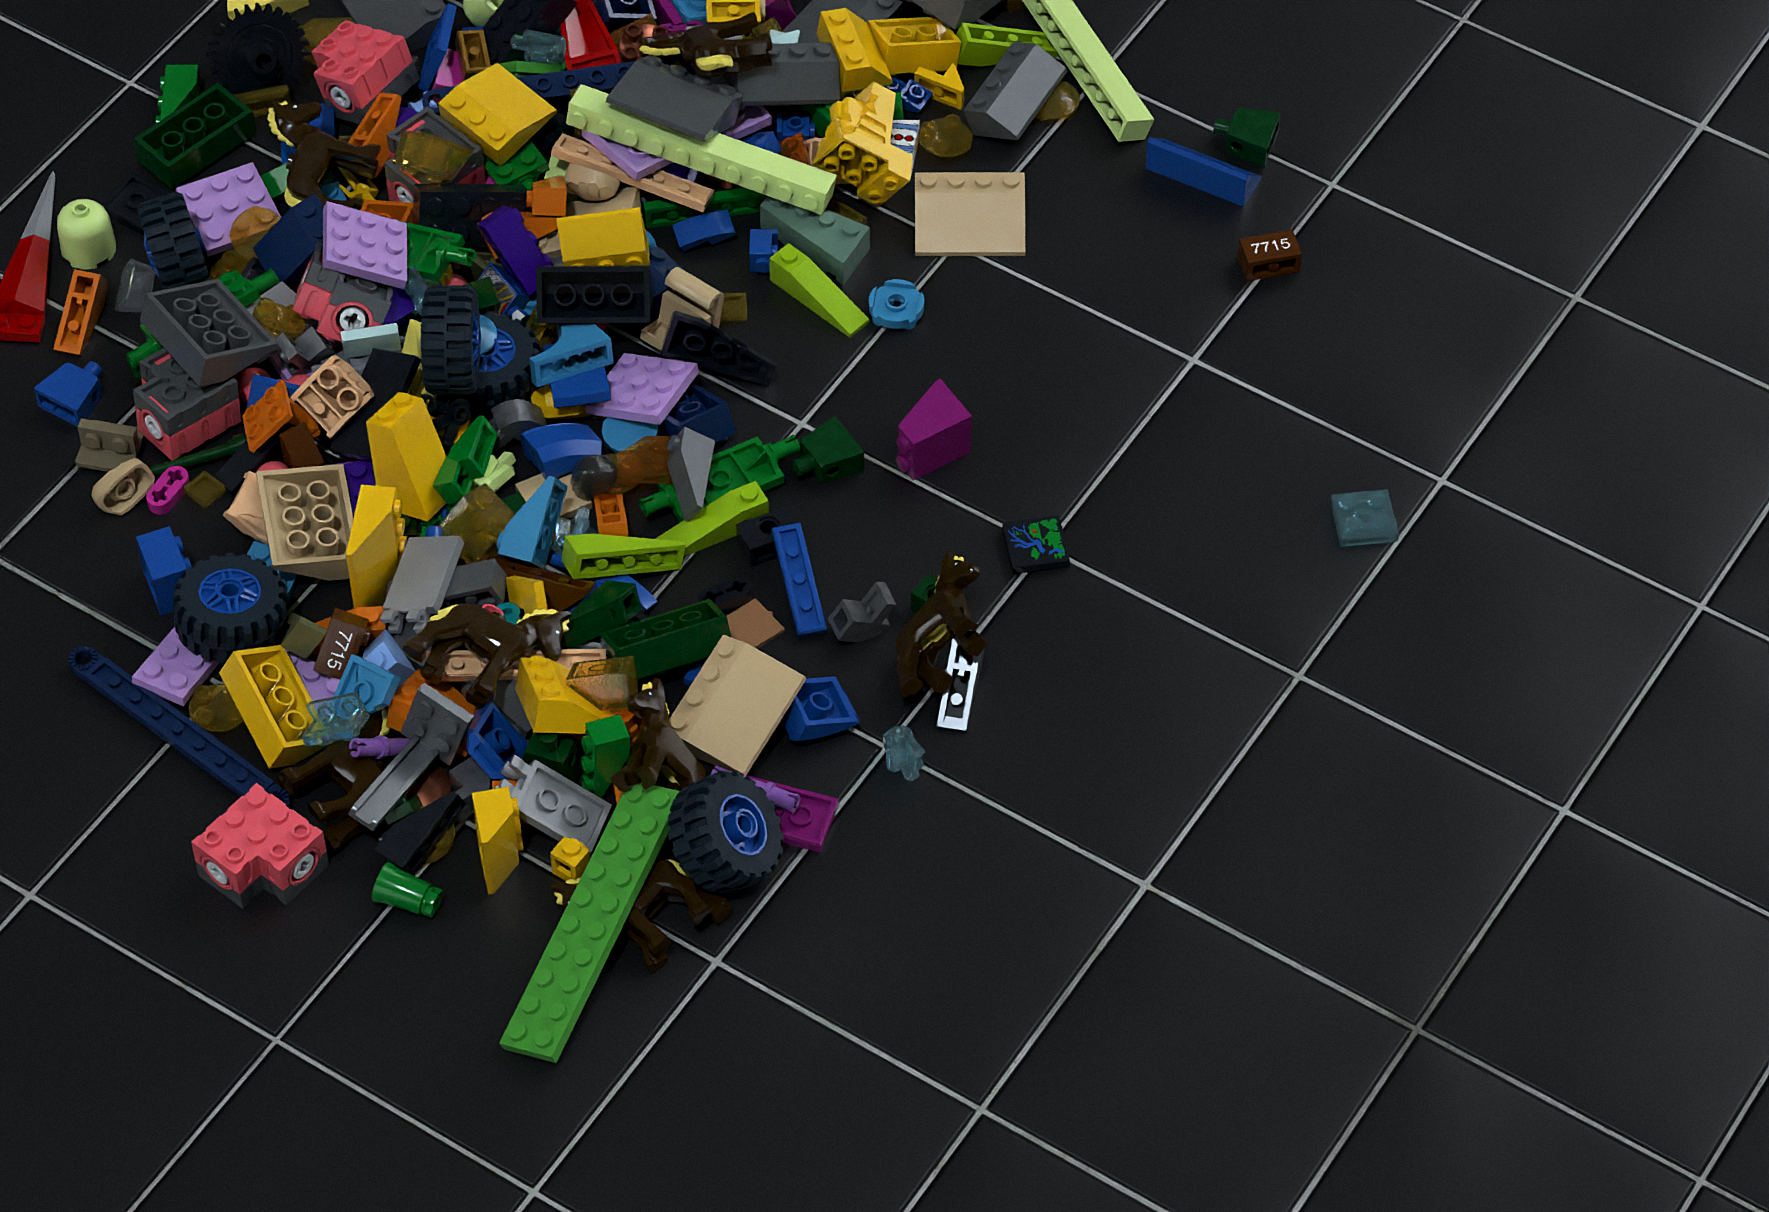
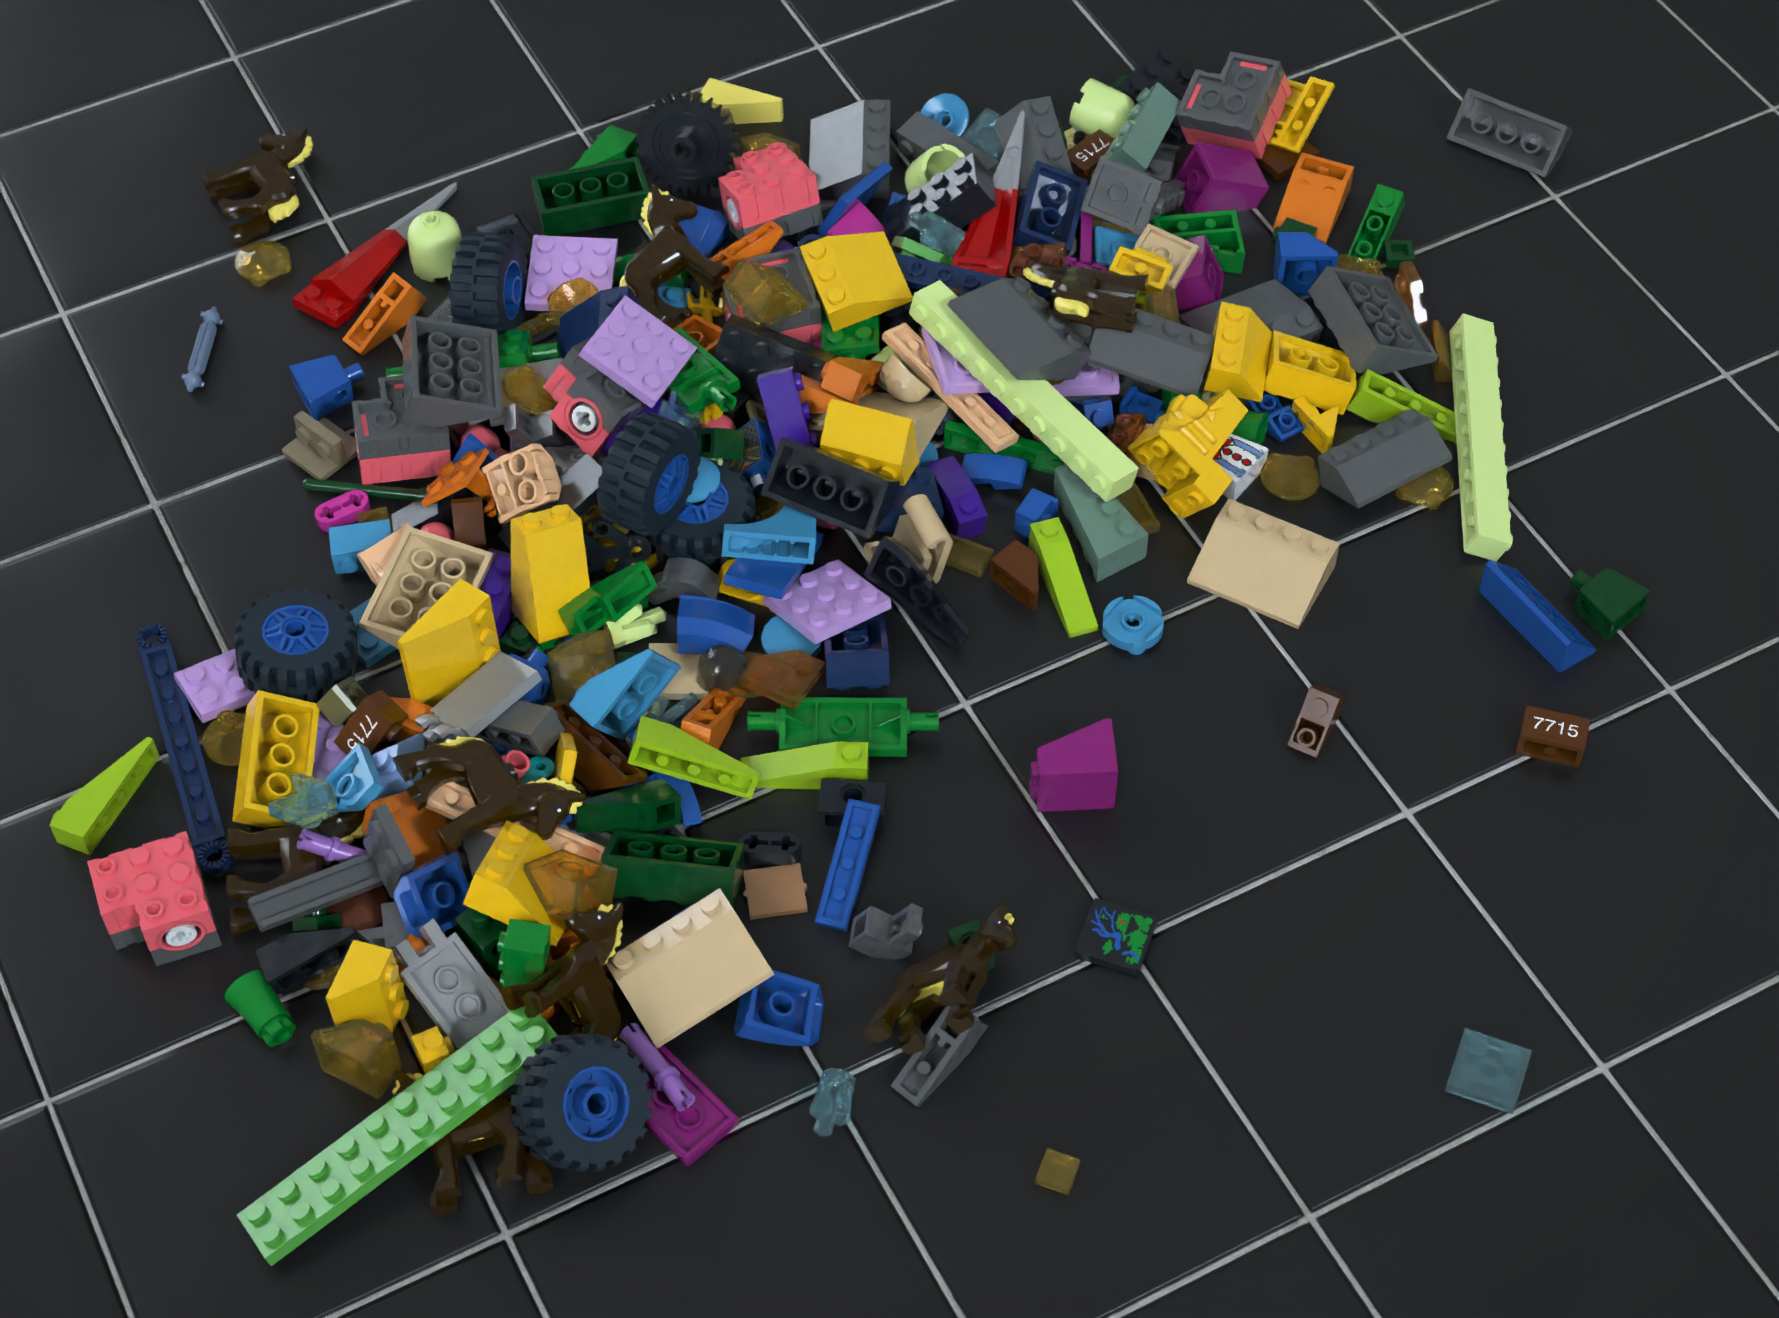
camera: 30 degrees right, 0 degrees up
(123, 487) = (300, 490): tan piece -> none
(141, 811) = (96, 806): none -> lime slope
(162, 565) = (273, 569): blue brick -> none
(204, 511) = (351, 539): none -> dark azure brick
(260, 100) = (677, 187): clear yellow tile -> none
(363, 340) = (580, 441): light aqua slope -> none
(471, 52) = (879, 213): pearl gold slope -> none
(514, 886) = (359, 1054): none -> clear yellow slope
(689, 468) = (811, 699): dark grey slope -> none
(694, 258) = (959, 498): none -> dark purple slope
(781, 303) = (1017, 573): none -> reddish brown slope
(783, 38) = (1171, 313): light aqua slope -> none
(829, 453) = (965, 746): dark green torso -> none
(1086, 318) = (1316, 719): none -> slope
(1100, 727) = (1057, 1171): none -> clear yellow tile

